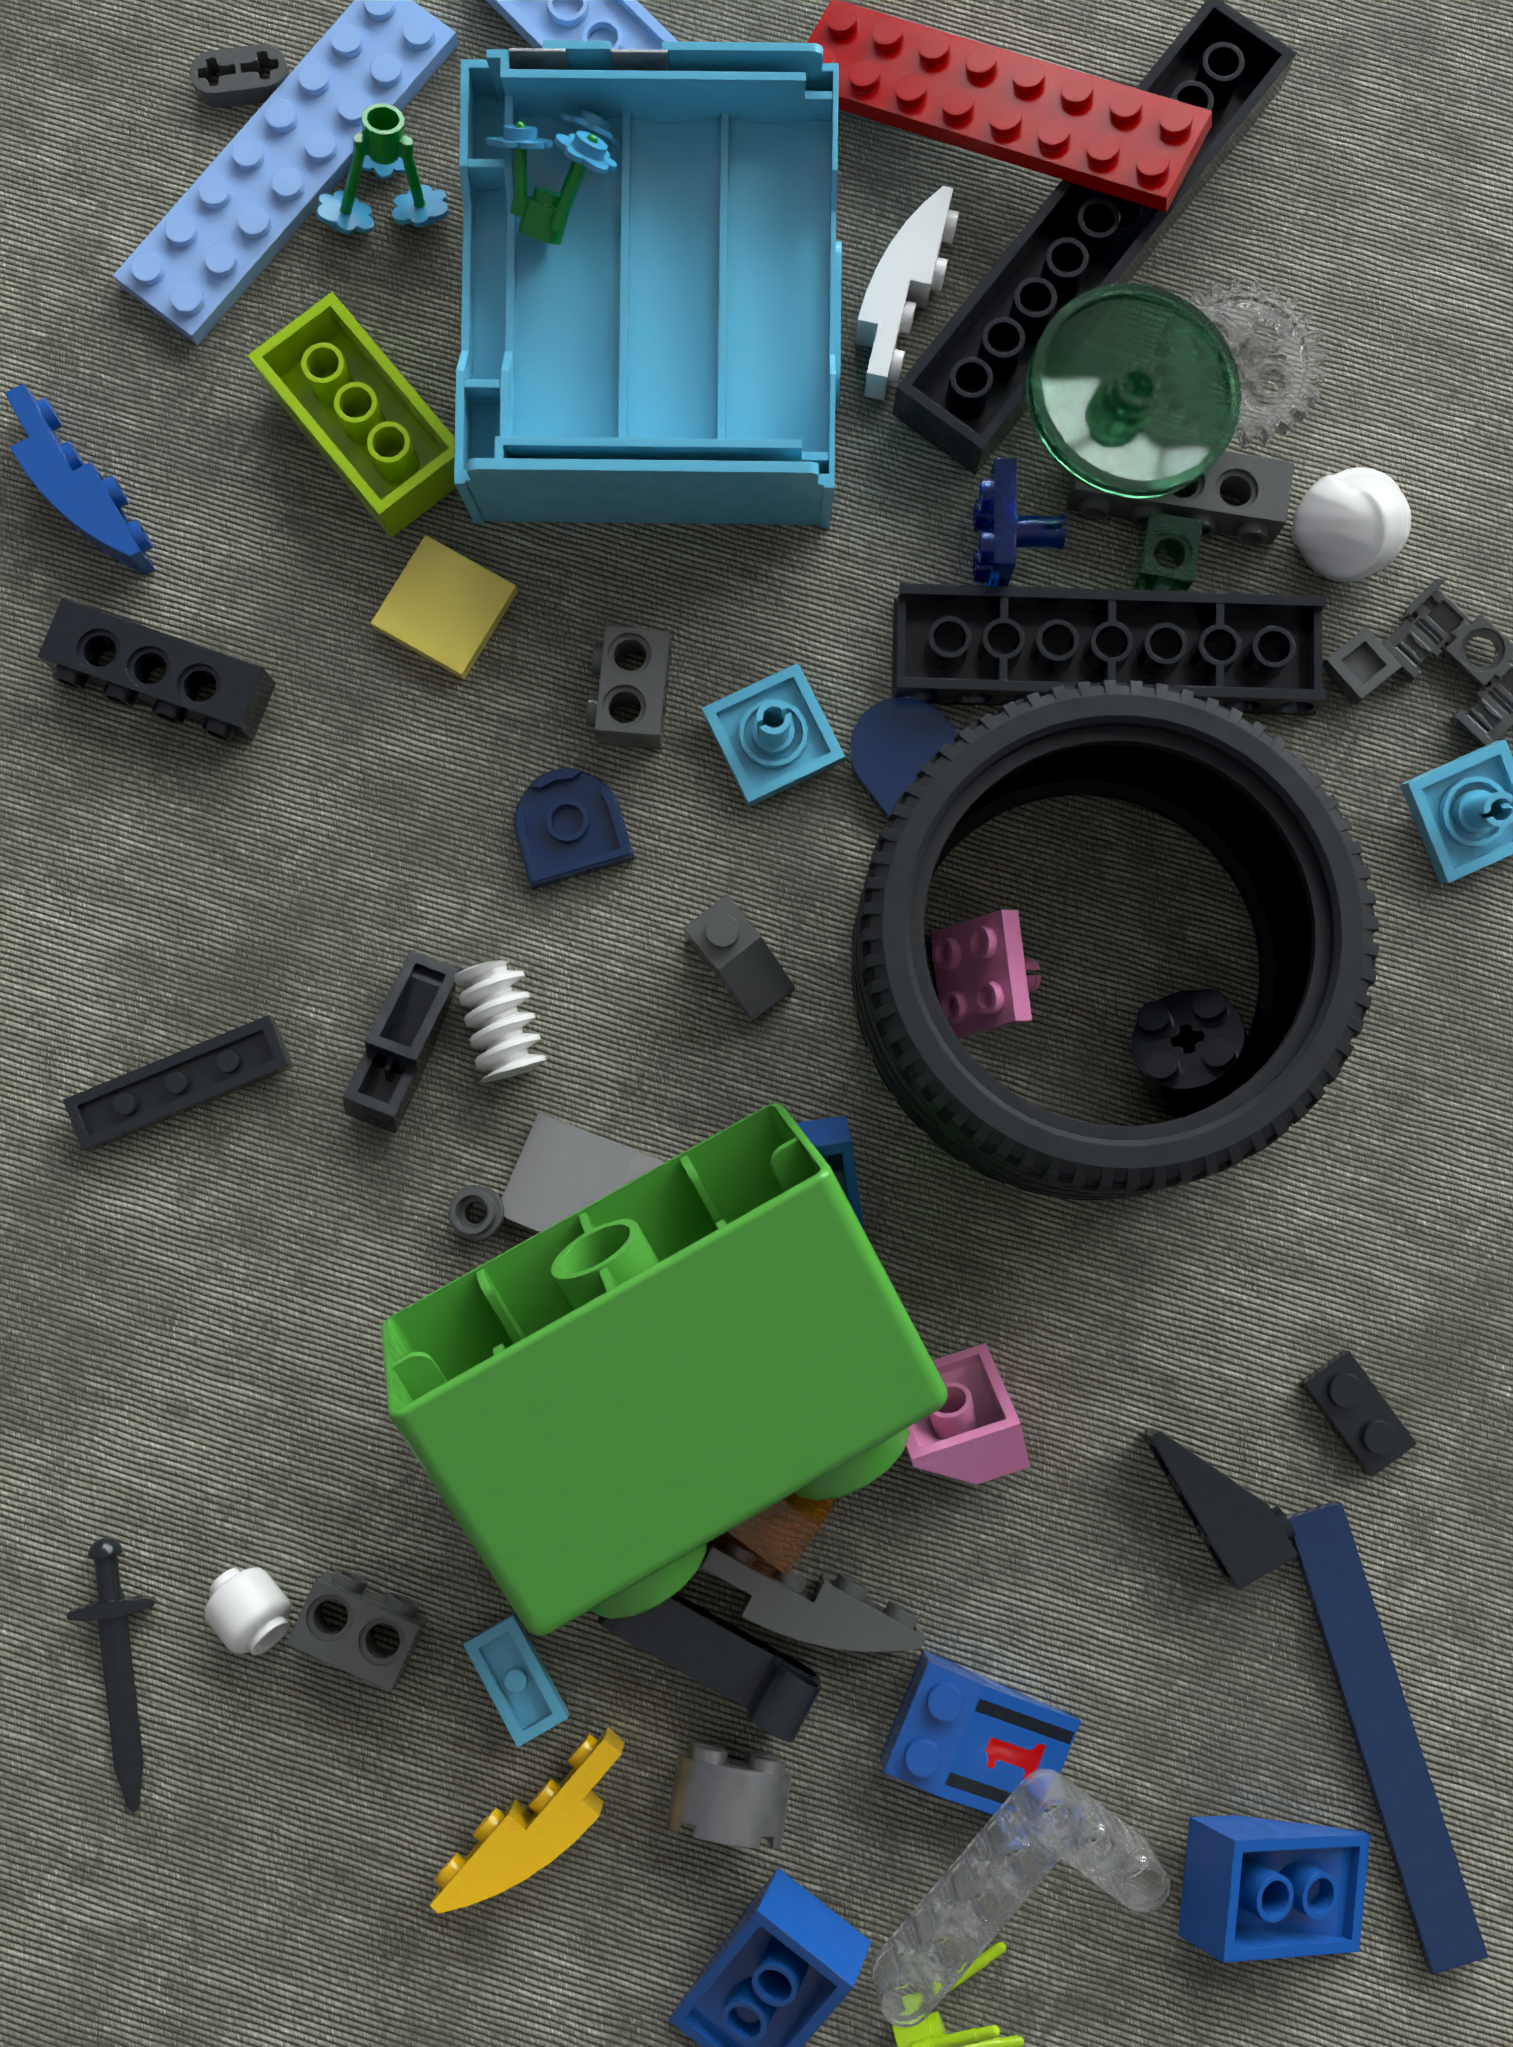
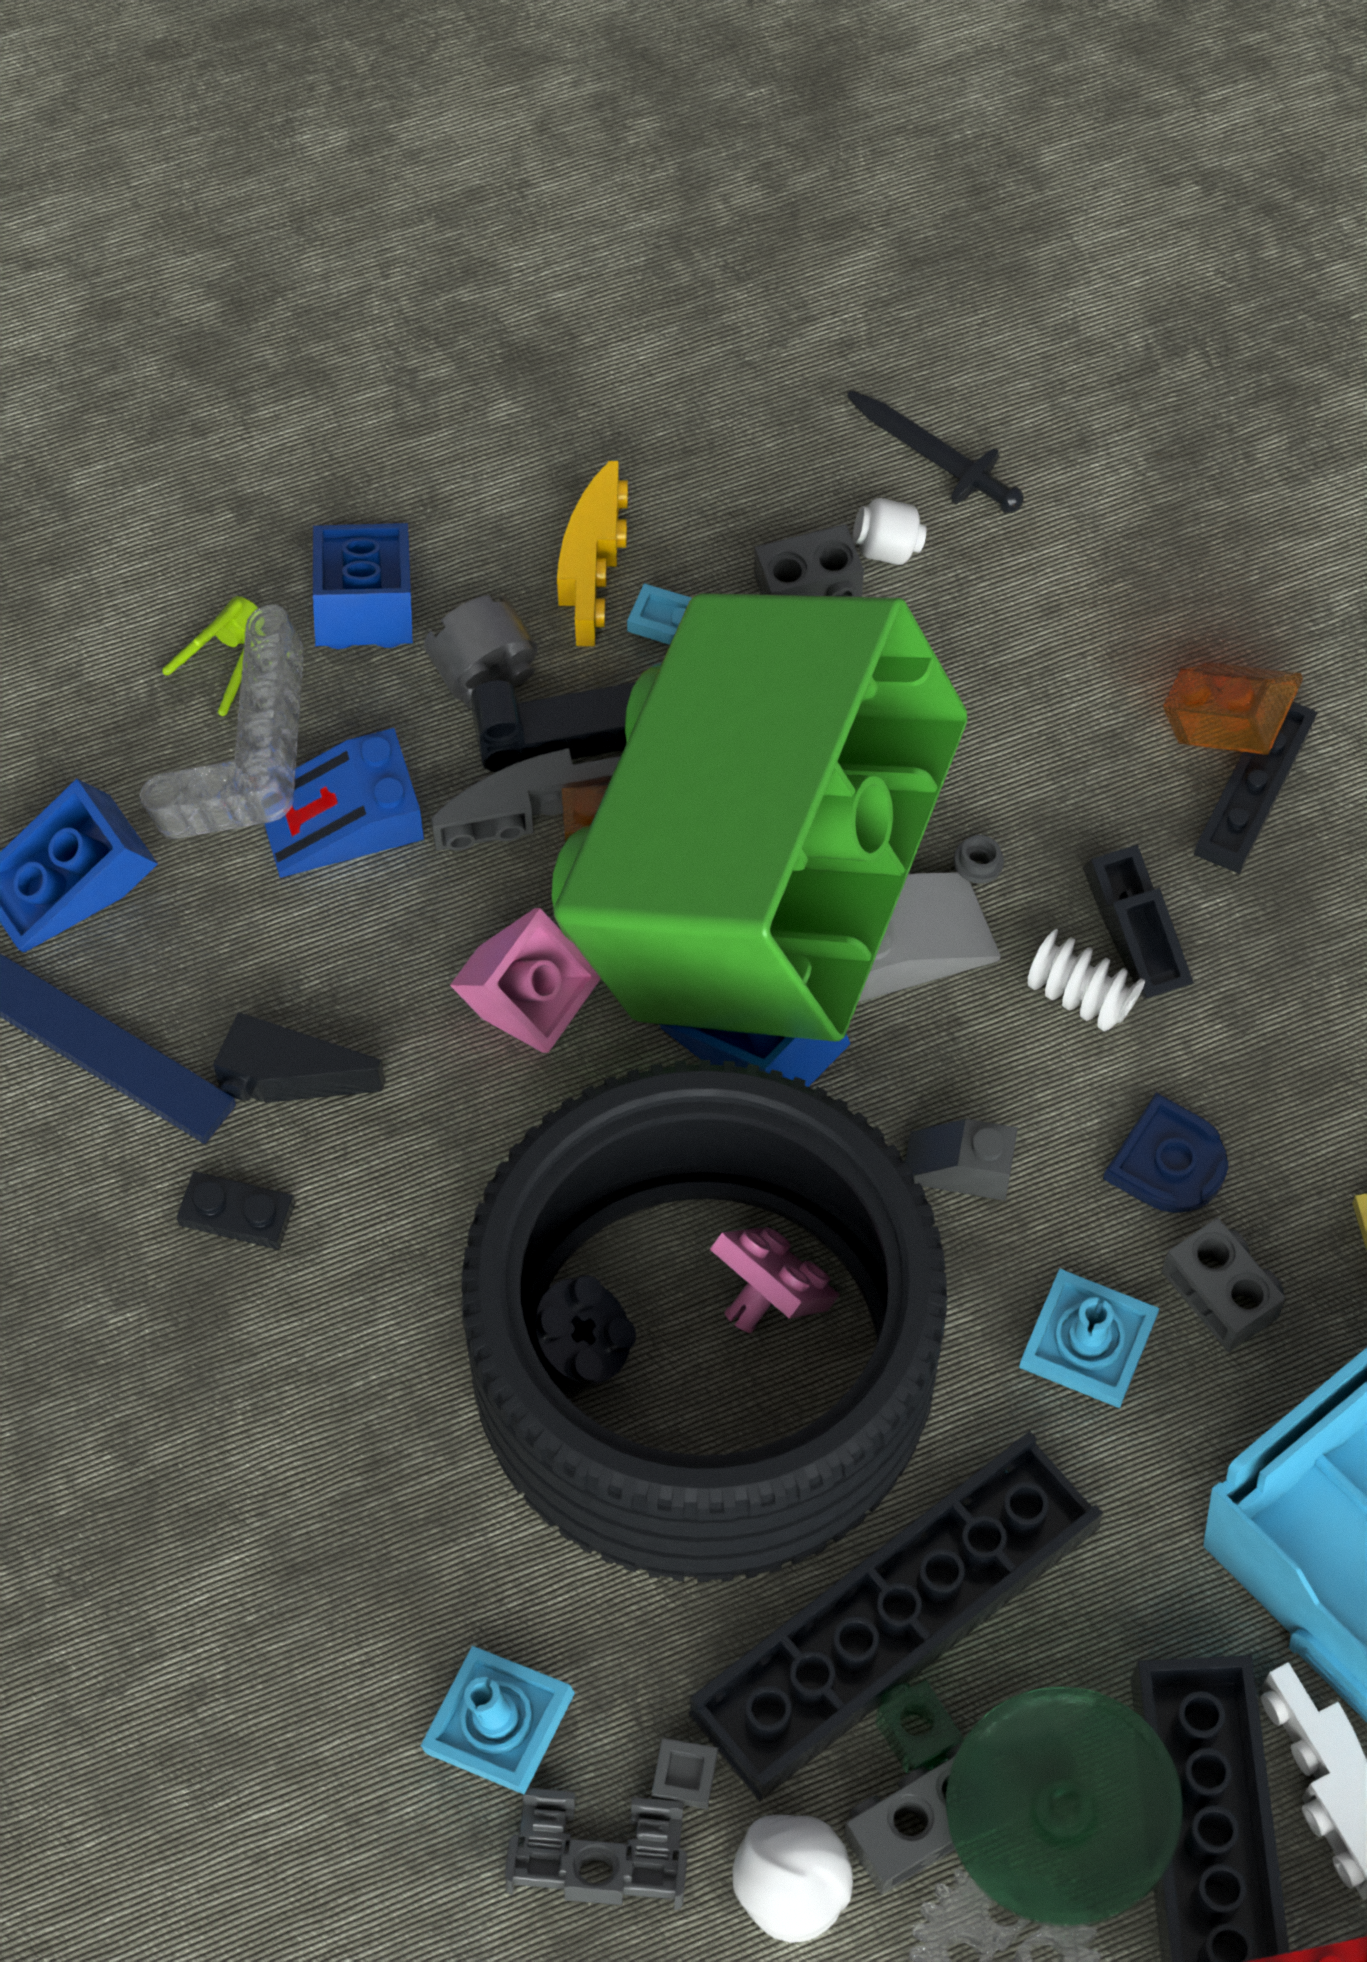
camera: 140 degrees right, 20 degrees down
(125, 1166) = (1230, 706): none -> clear orange slope
(893, 746) = (977, 1408): dark blue tile -> none
(1005, 530) = (1061, 1623): clear blue plate -> none

